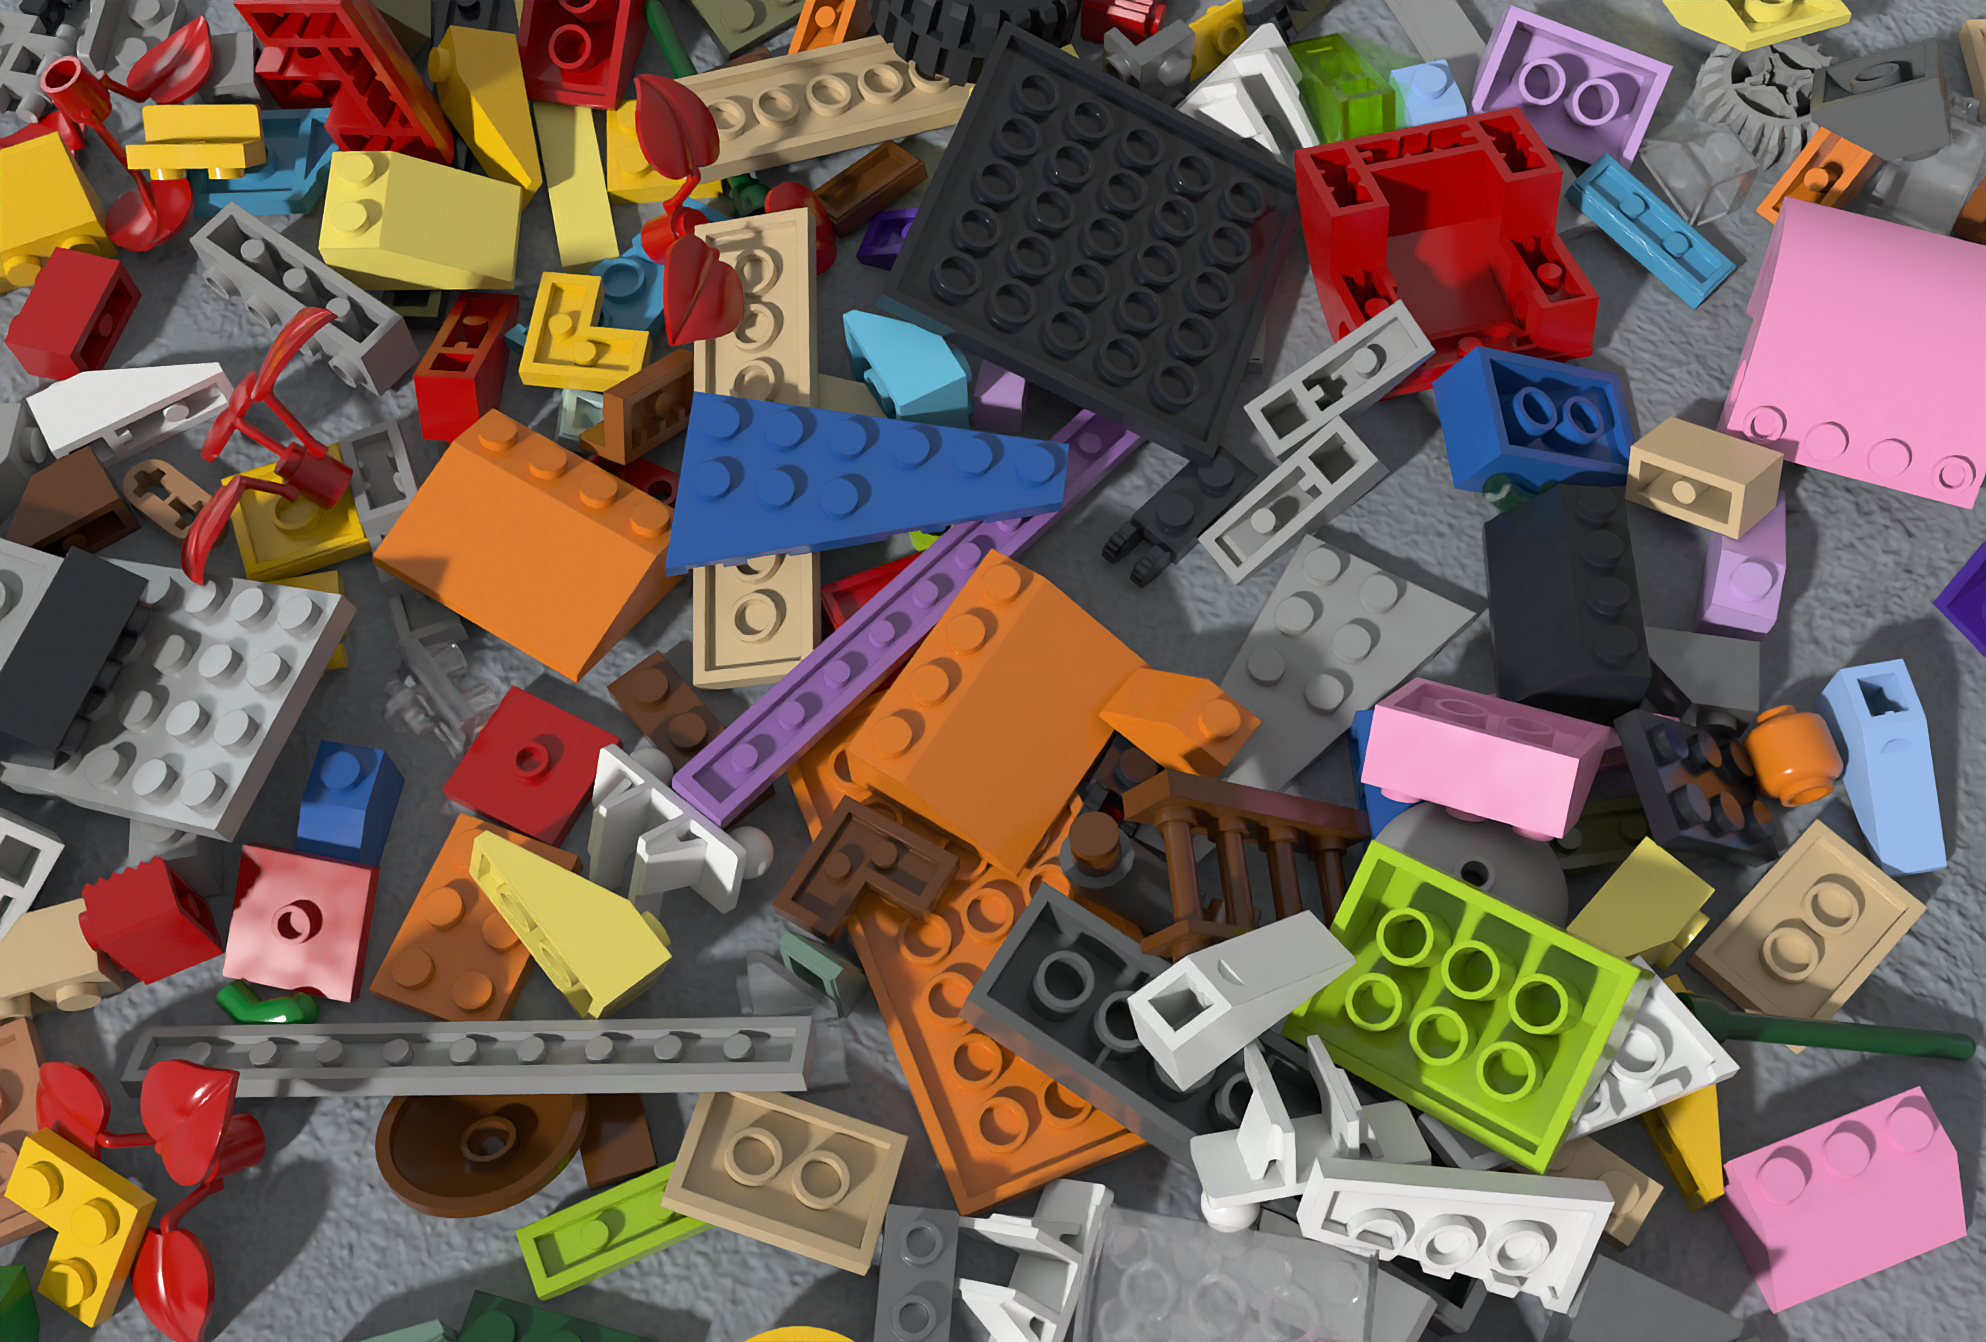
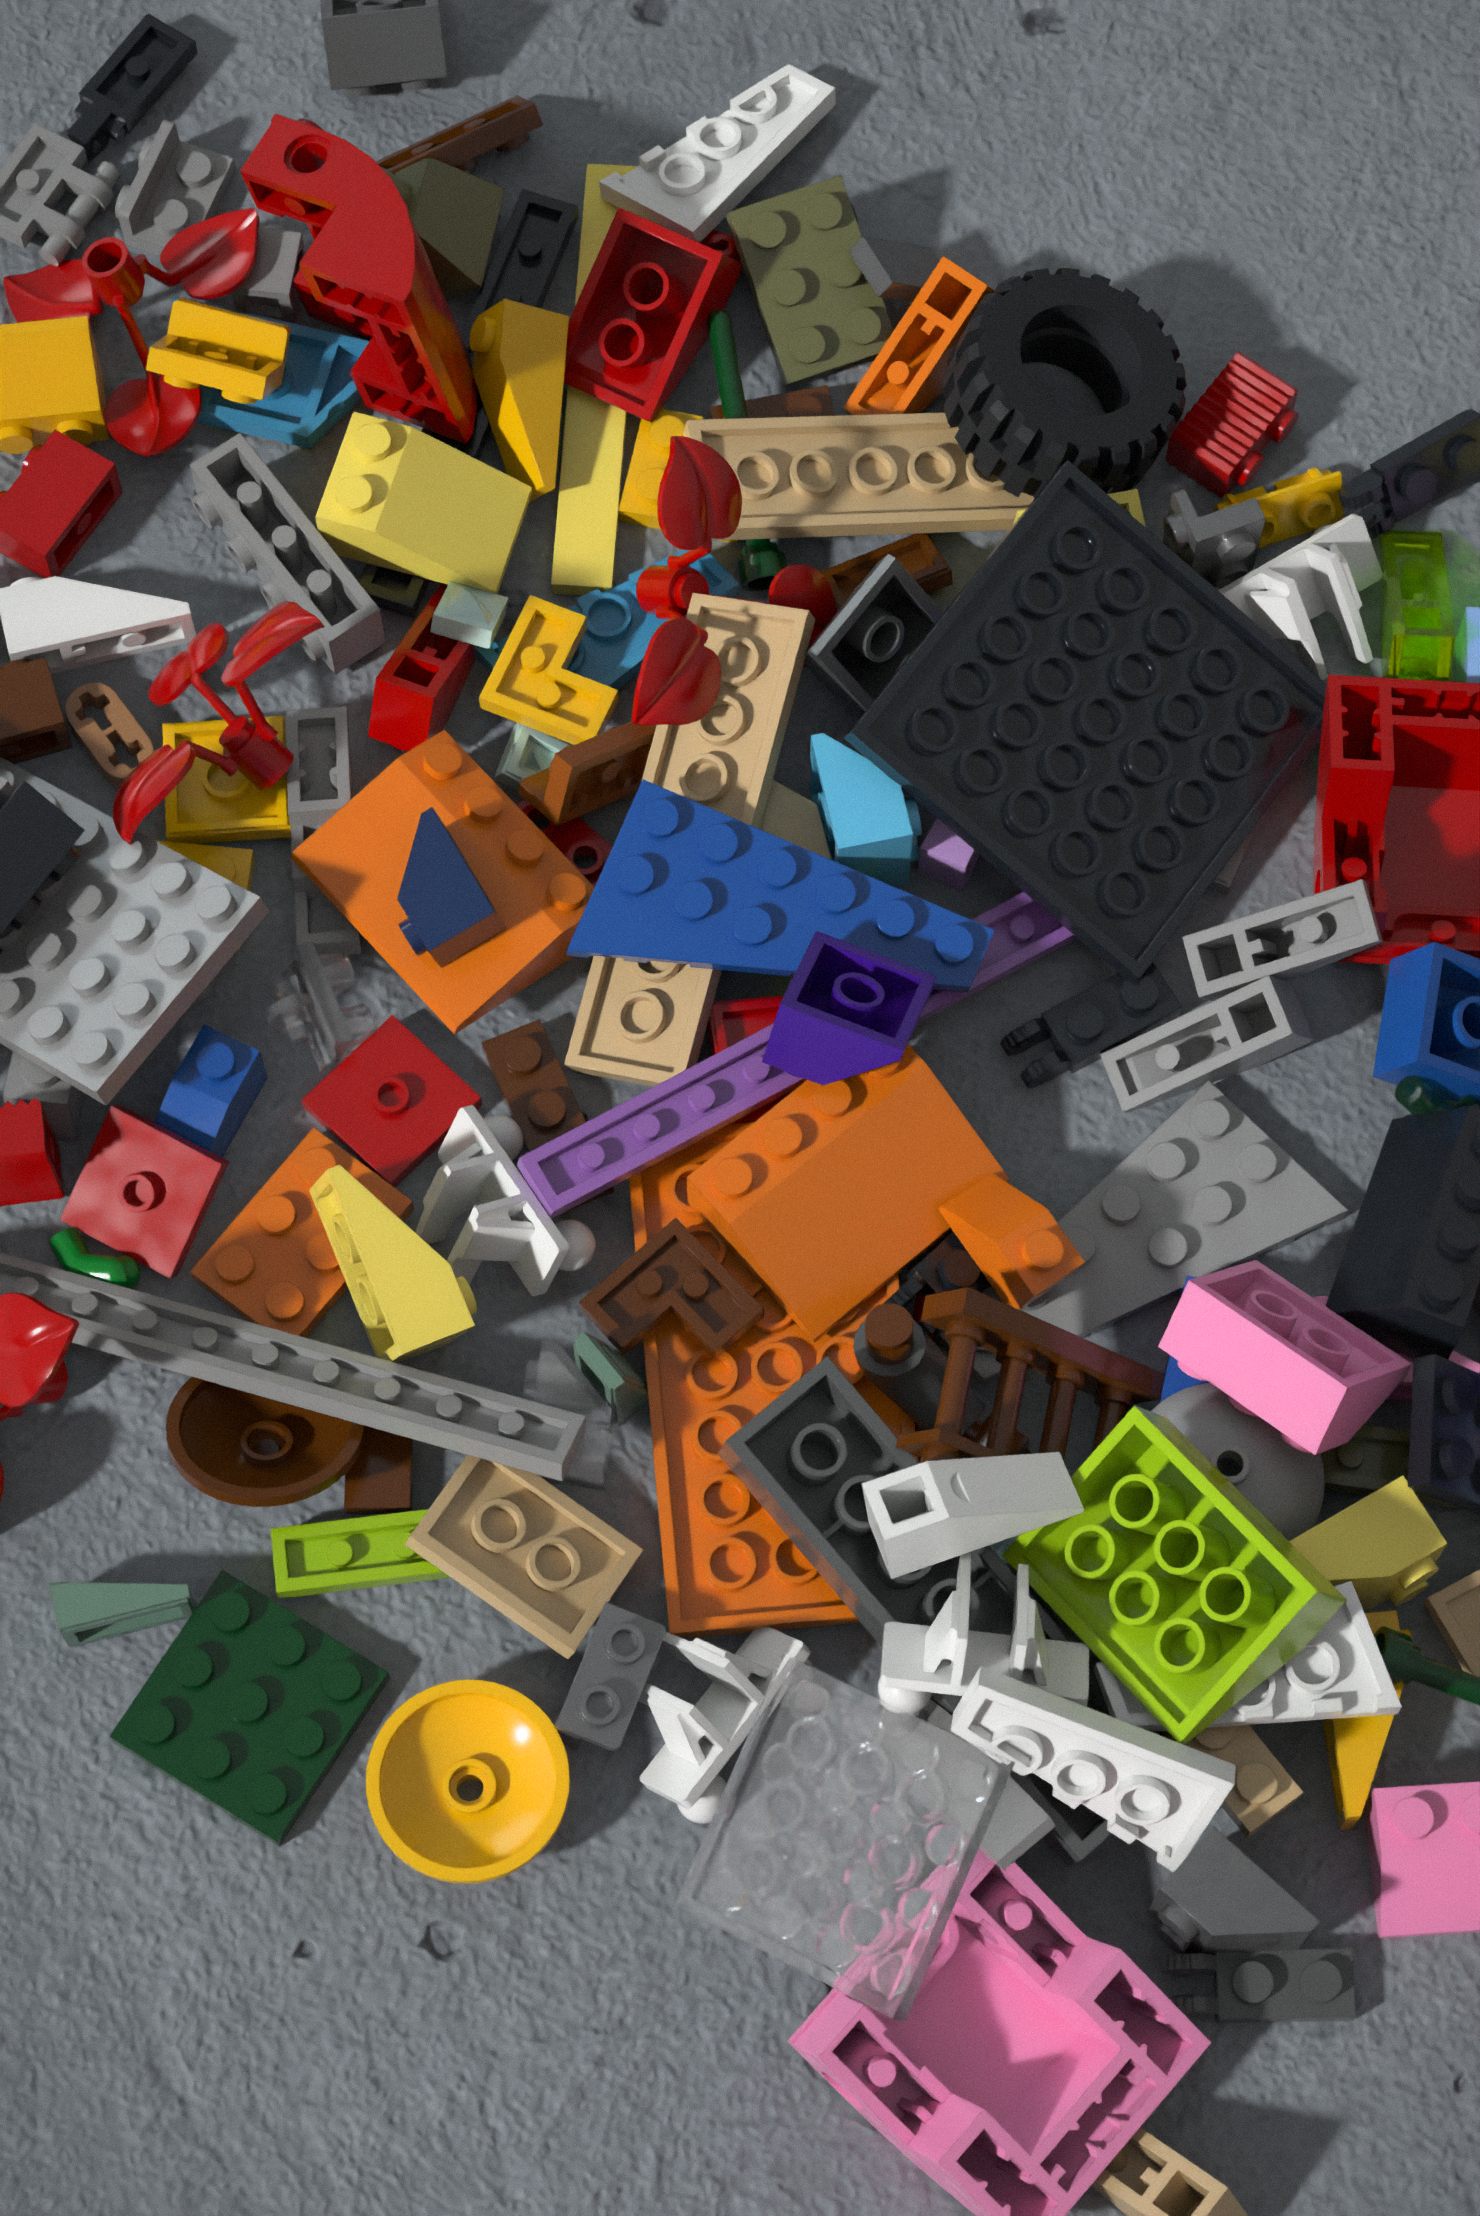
camera: 15 degrees right, 5 degrees up
(491, 307) = (469, 615): none -> light aqua tile
(530, 551) = (443, 896): none -> dark blue slope
(869, 221) = (872, 634): none -> dark grey slope
(955, 549) = (845, 1012): none -> dark purple slope

